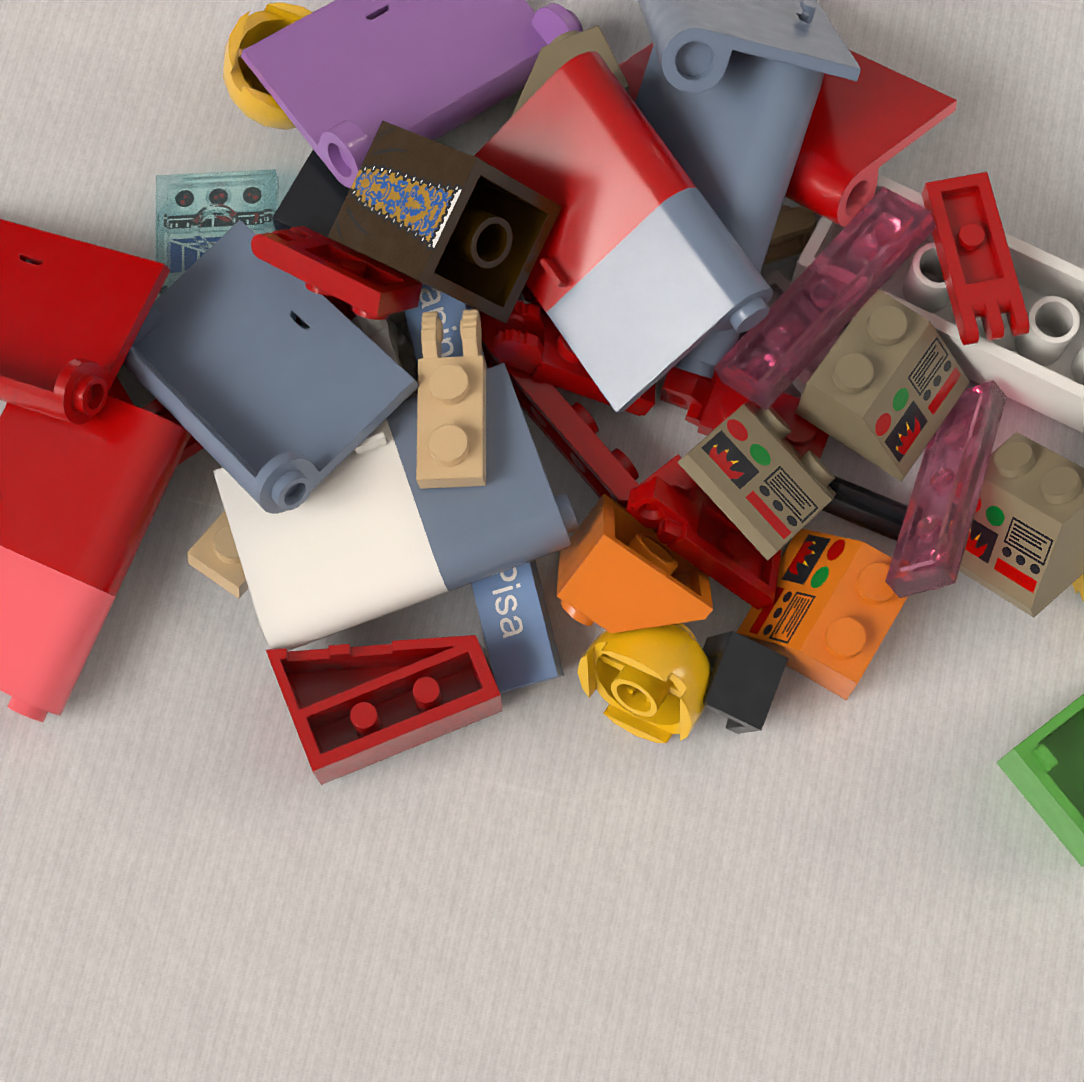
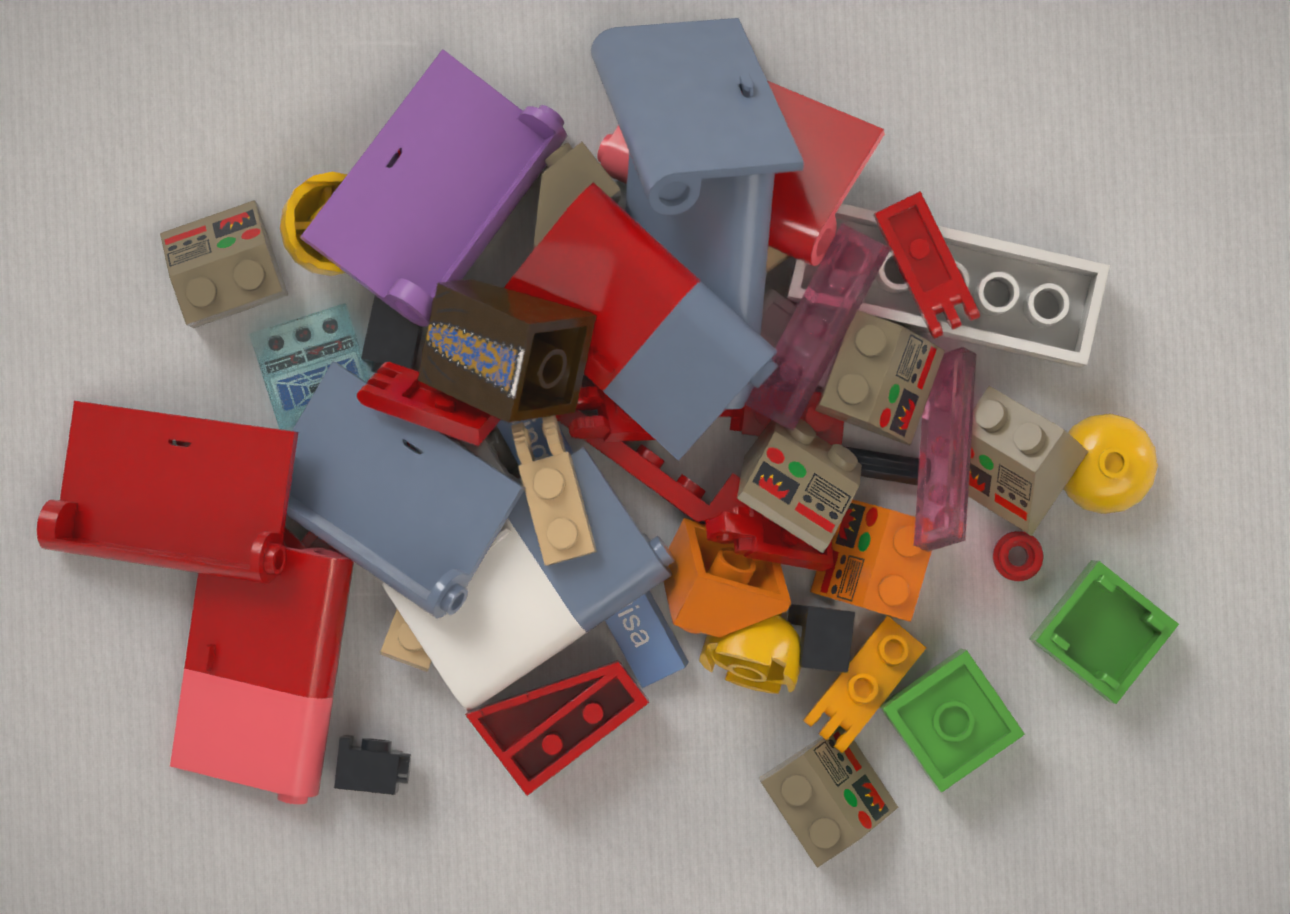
camera: 20 degrees left, 15 degrees up
(133, 698) = (371, 766): none -> black brick
(149, 102) = (222, 265): none -> dark tan slope
(696, 885) = (828, 796): none -> dark tan slope
(780, 755) = (869, 681): none -> light orange hinge
(880, 825) = (951, 720): none -> bright green container
(1018, 641) = (1033, 560): none -> red plate

